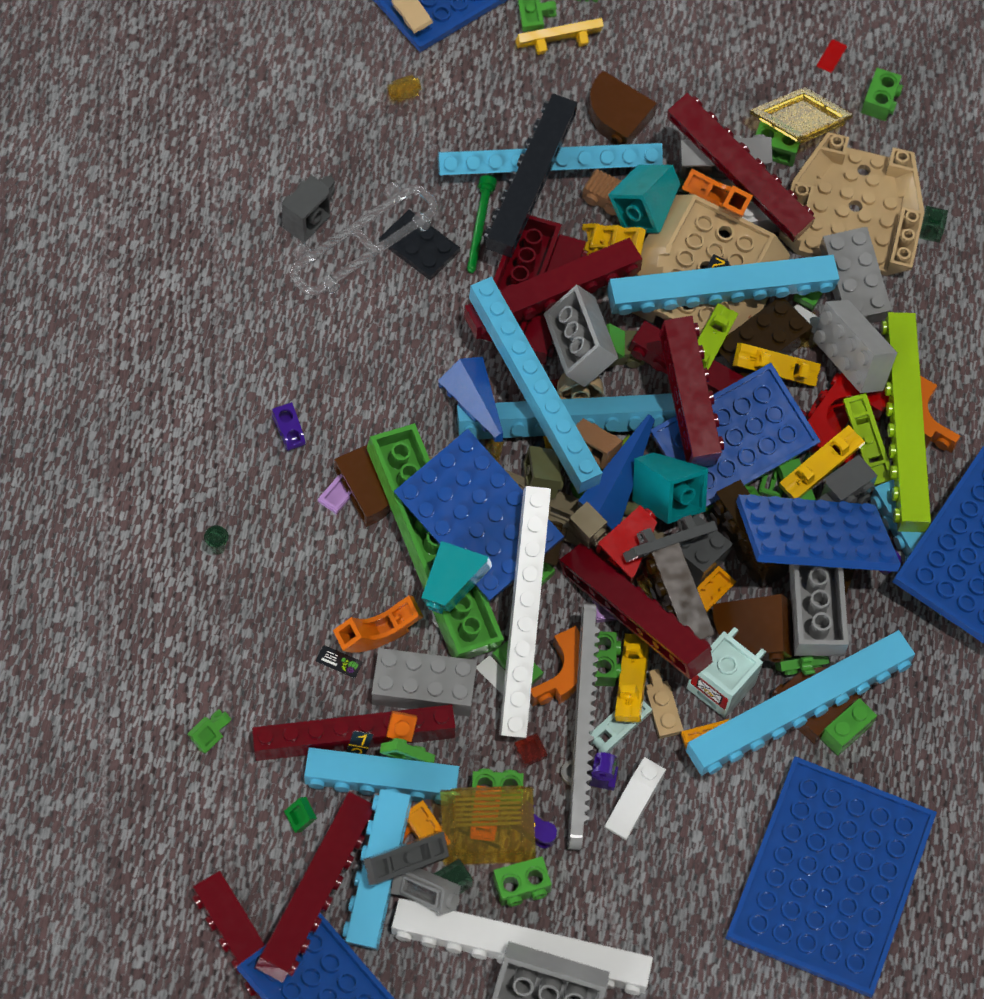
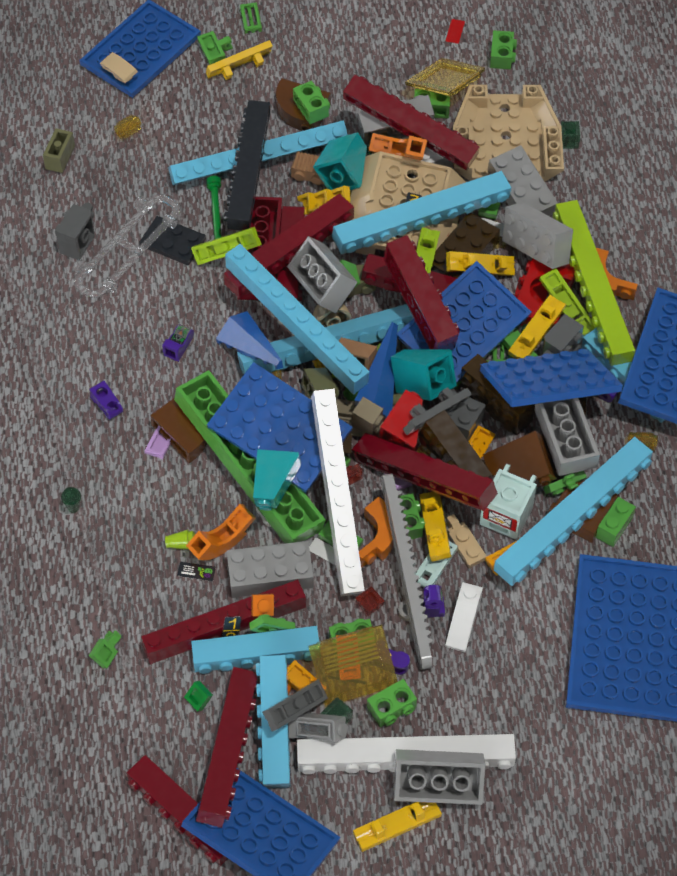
camera: 10 degrees left, 5 degrees down
(314, 100) = (59, 150): none -> olive brick
(329, 618) = (179, 540): none -> lime cone
(391, 374) = (178, 342): none -> dark purple leg
(477, 269) = (219, 247): none -> lime hinge
(552, 589) = (354, 473): none -> clear red plate
(625, 111) = (311, 102): none -> bright green brick
(914, 634) = (646, 438): none -> clear yellow cone

